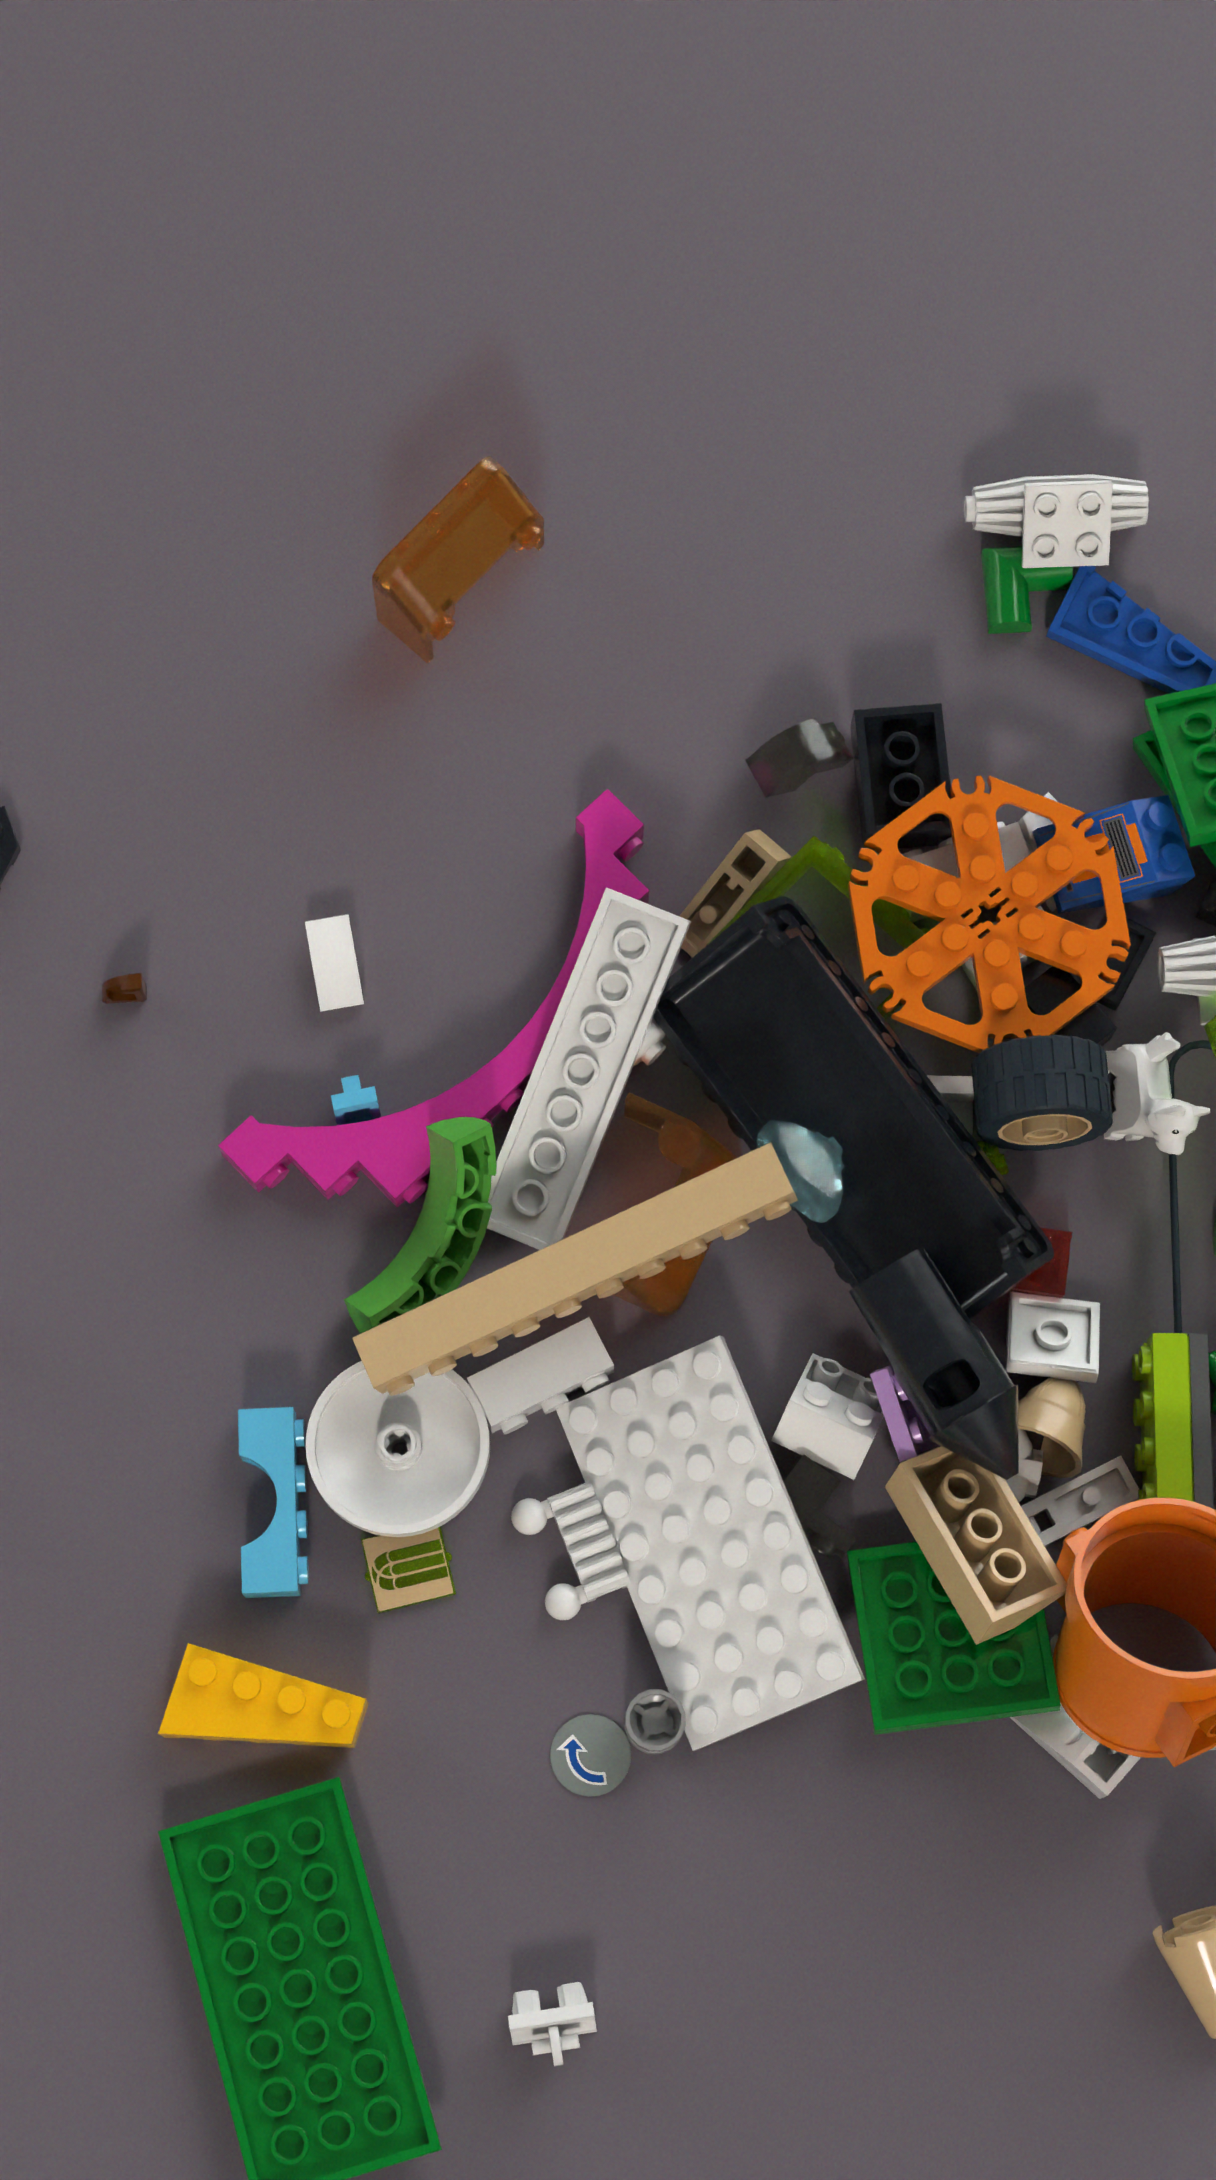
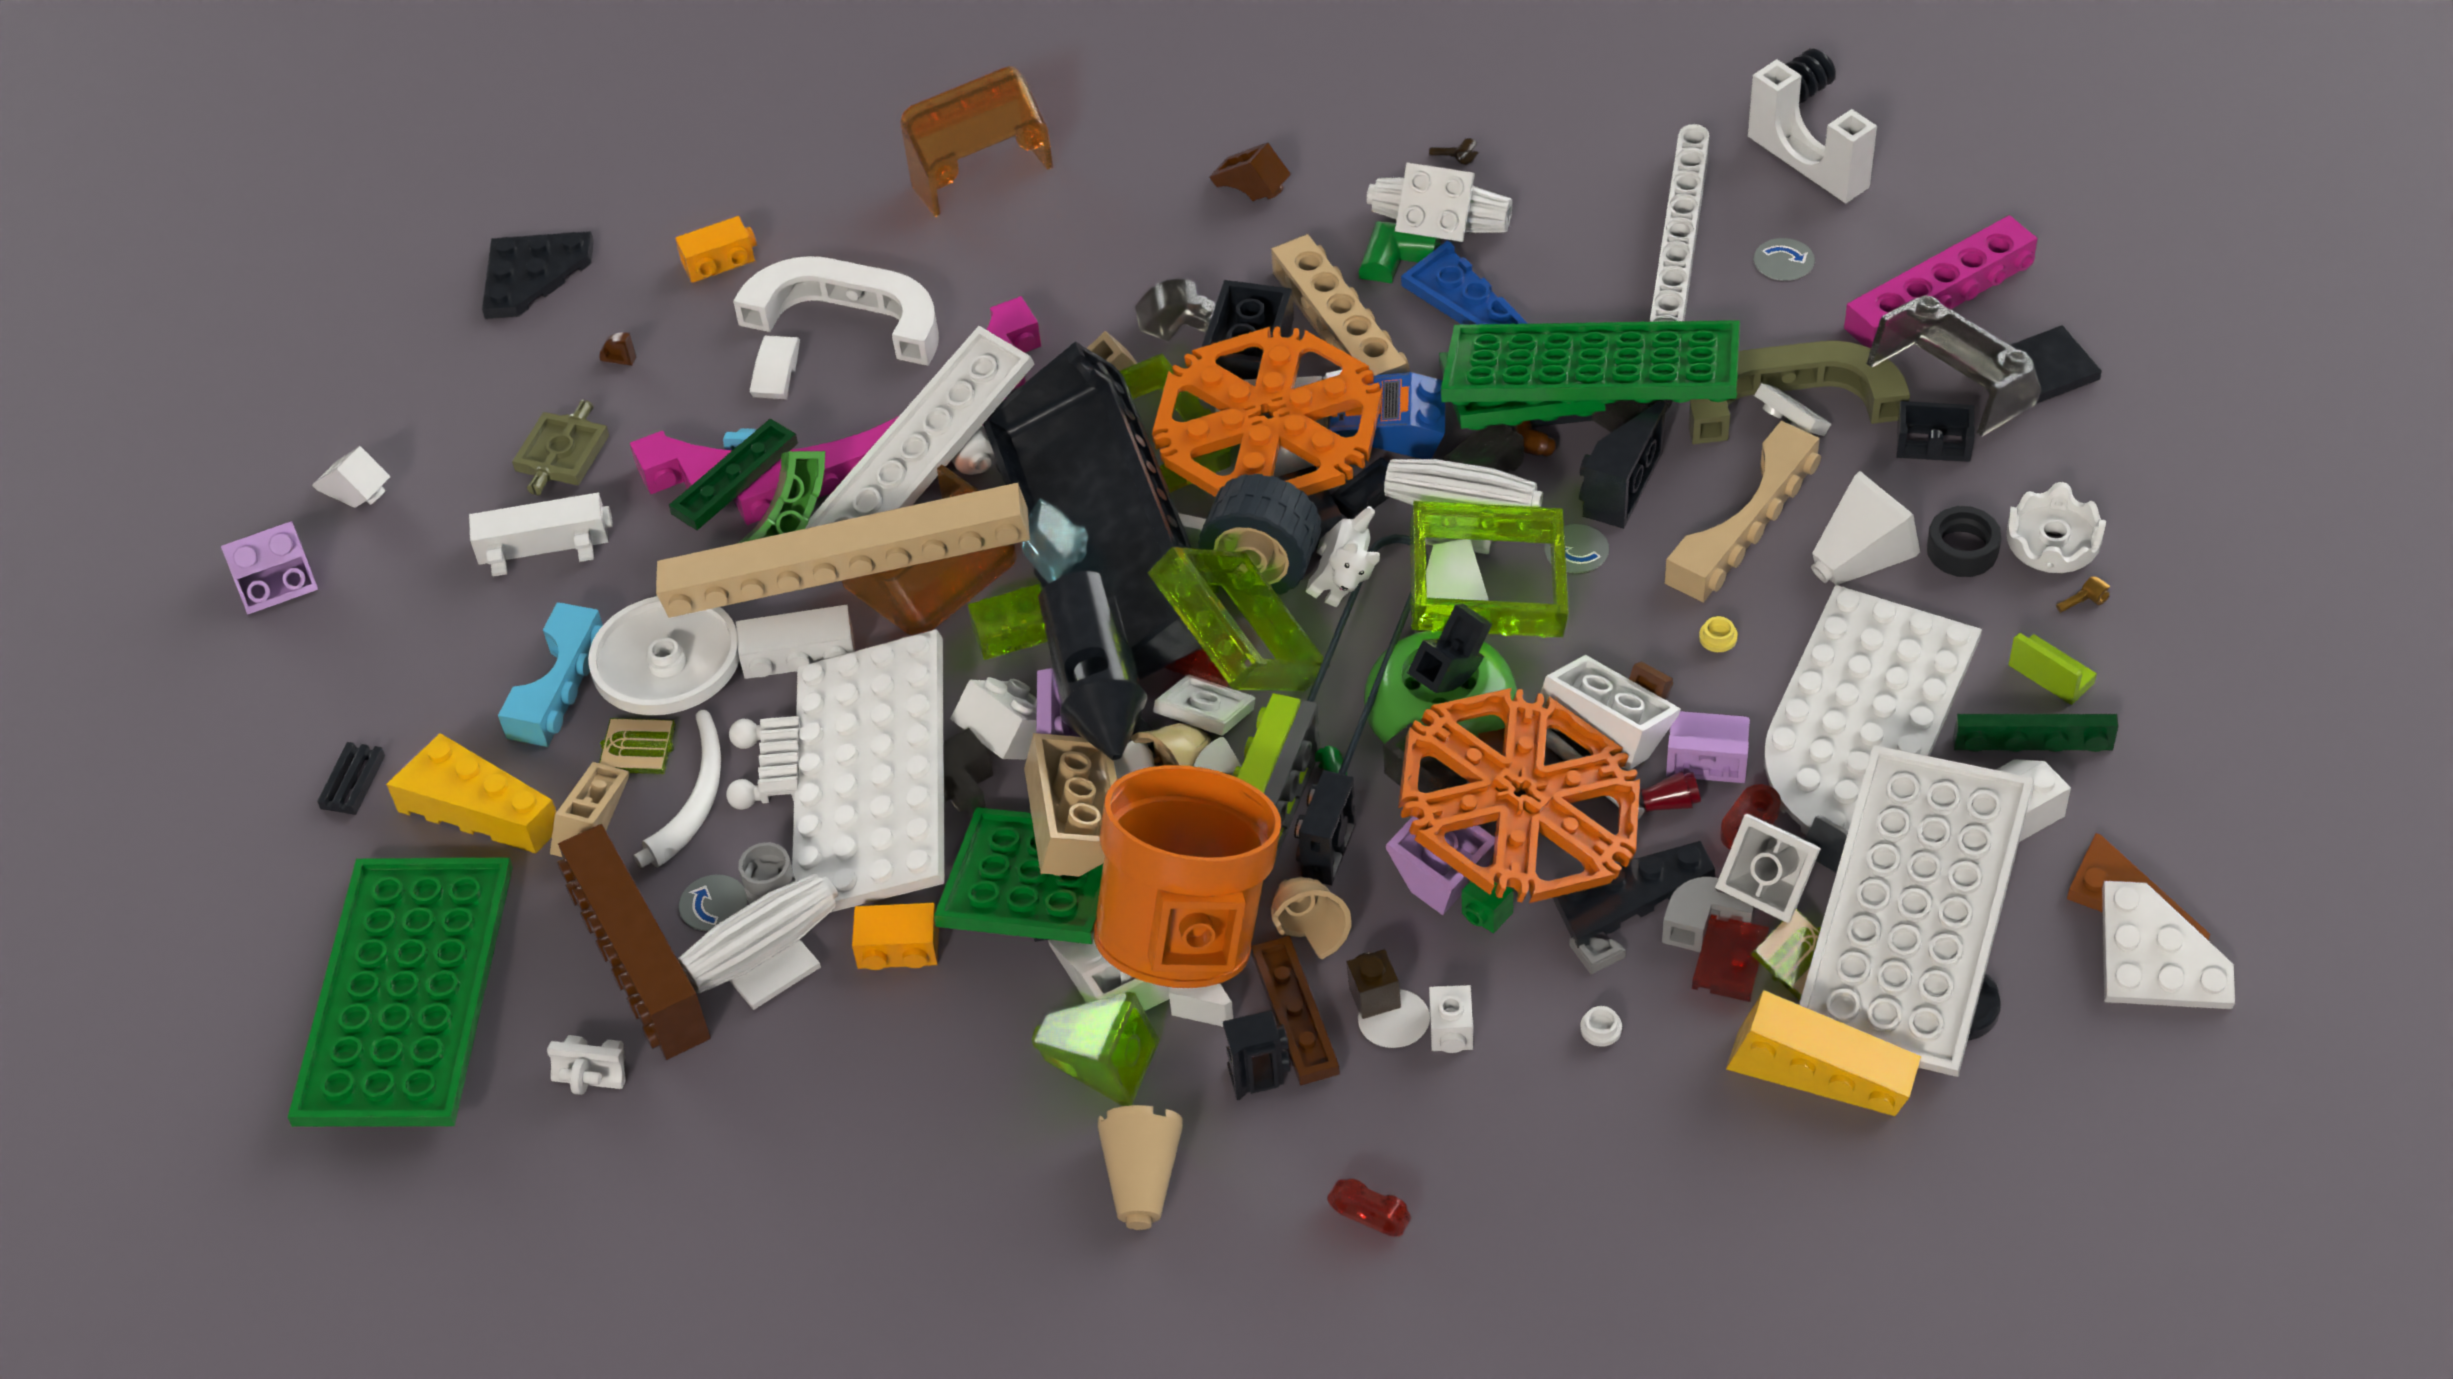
camera: 25 degrees right, 25 degrees down
(91, 1751) = (345, 776): none -> black tile
(123, 1161) = (560, 448): none -> olive plate
(155, 1294) = (539, 529): none -> white brick
(182, 797) = (716, 248): none -> light orange brick
(377, 1169) = (733, 474): none -> dark green plate
(383, 812) = (846, 284): none -> white arch
(402, 1684) = (589, 803): none -> tan slope
(521, 1650) = (682, 828): none -> white animal
(542, 1856) = (632, 943): none -> reddish brown brick
(691, 1818) = (762, 943): none -> white plate
(789, 1283) = (1008, 622): none -> clear neon green brick
(806, 506) = (1254, 172): none -> reddish brown arch
(827, 1751) = (895, 936): none -> light orange brick
(968, 706) = (1333, 306): none -> tan brick
(1048, 404) = (1462, 154): none -> dark brown hand
(1057, 1270) = (1185, 580): none -> clear neon green window
(1107, 1423) = (1218, 757): none -> white tile
(1108, 1833) = (1101, 1044): none -> clear neon green slope

